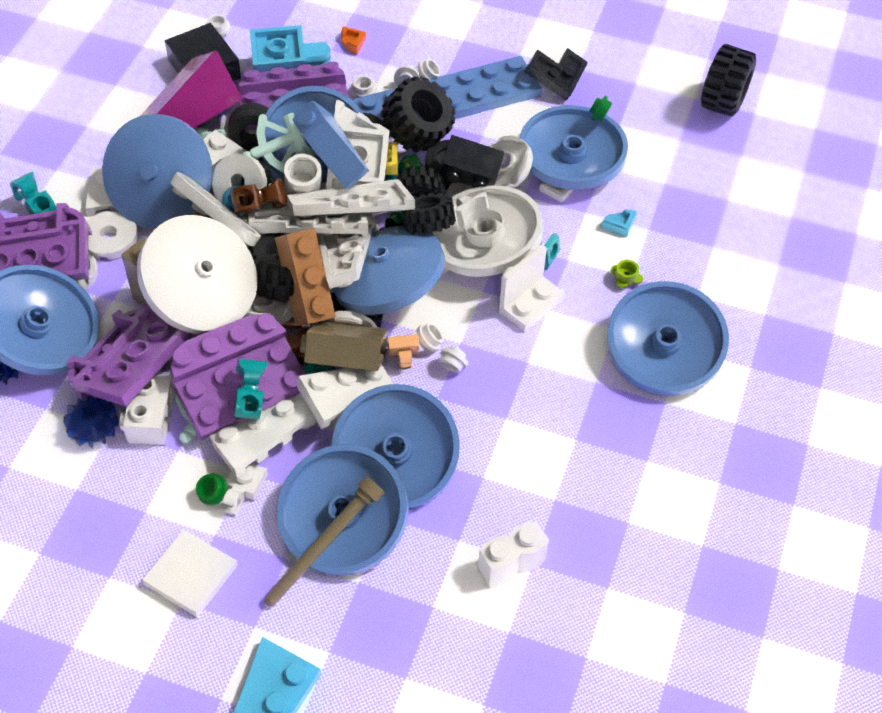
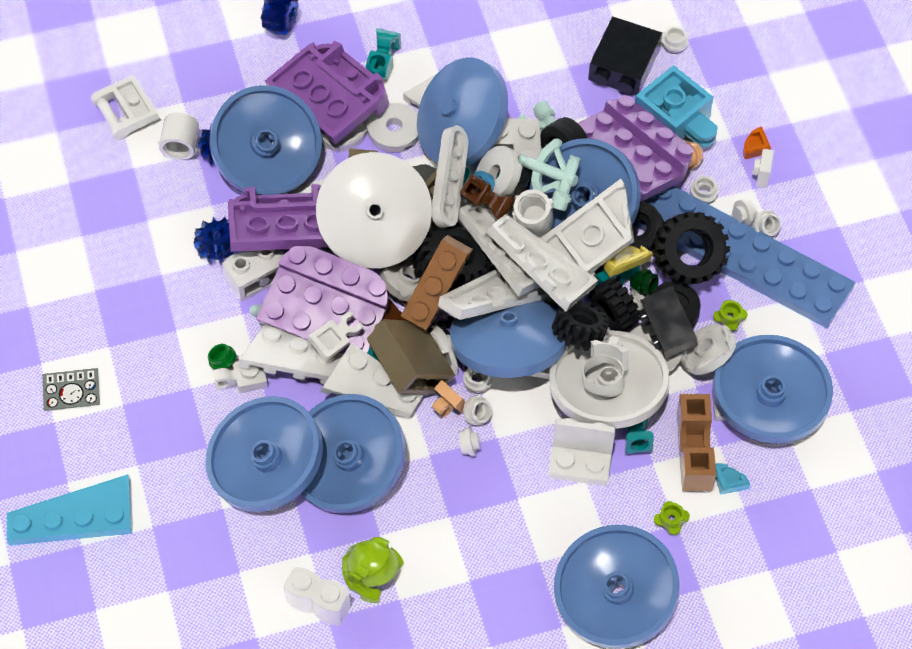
camera: 55 degrees right, 5 degrees up
(124, 637) = (70, 389): none -> sticker
(190, 573) = (146, 393): white tile -> none
(197, 91) = (557, 81): magenta slope -> none
(248, 398) = (303, 324): teal leg -> none
(278, 386) = (333, 338): none -> white plate
(330, 143) = (573, 205): medium blue slope -> none
(365, 494) = (281, 458): dark tan piece -> none
(381, 44) = (762, 168): none -> white plate
(399, 315) = (473, 386): none -> white plate
(483, 134) = (733, 308): none -> lime plate
(514, 496) = (370, 565): none -> lime helmet
(559, 76) = (854, 329): black plate -> none
(562, 210) = (695, 452): none -> medium nougat arch
(600, 108) = (826, 380): green plate -> none

